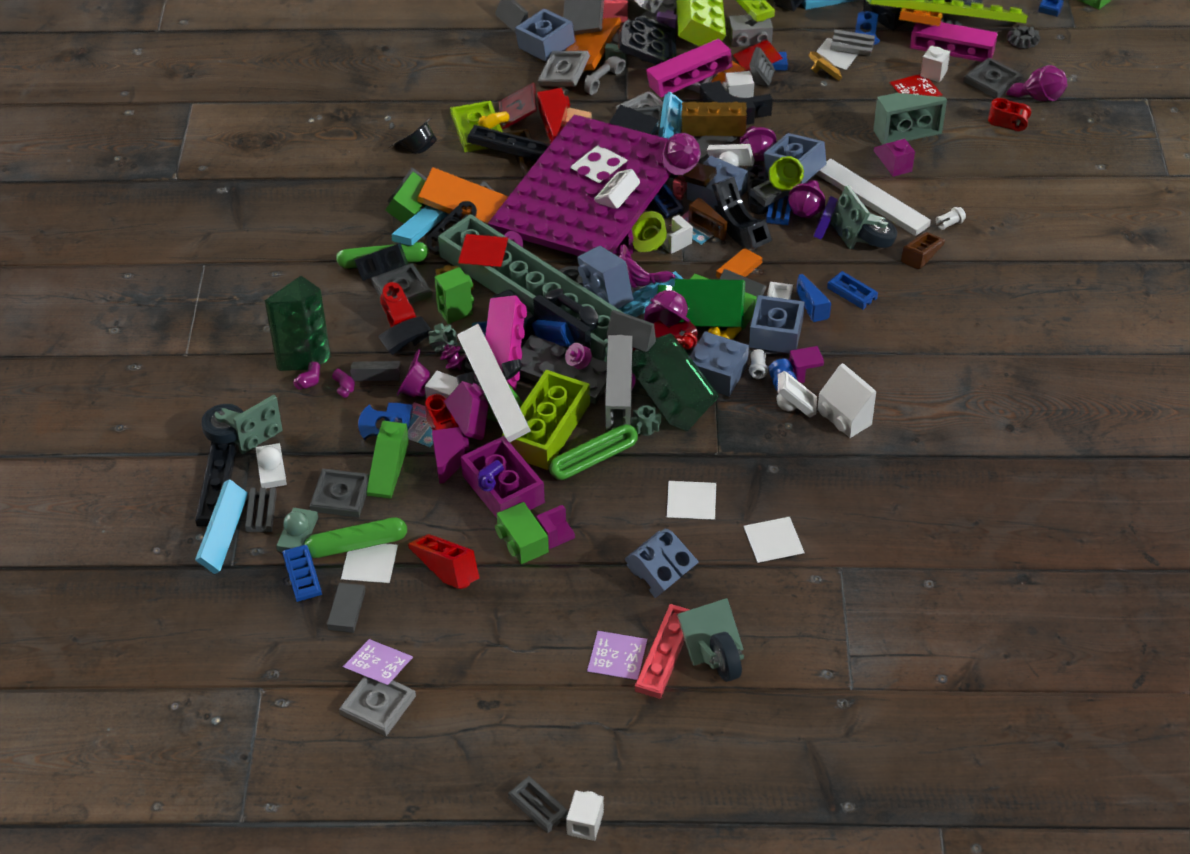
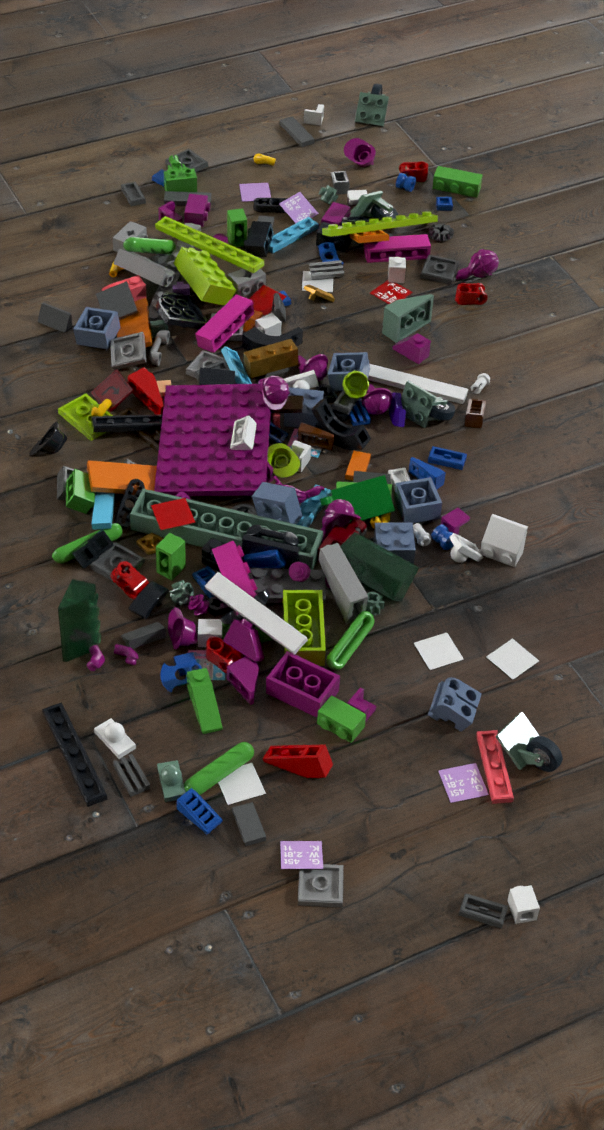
camera: 30 degrees left, 0 degrees up
(221, 526) = (112, 799): medium azure tile -> none
(247, 429) = (65, 717): sand green plate -> none
(340, 493) = (183, 739): dark grey tile -> none
(486, 475) = (298, 686): dark purple arm -> none
(600, 165) = (215, 420): white sticker -> none
(641, 331) = (328, 536): dark grey slope -> none
(688, 340) = (370, 533): red arm -> none

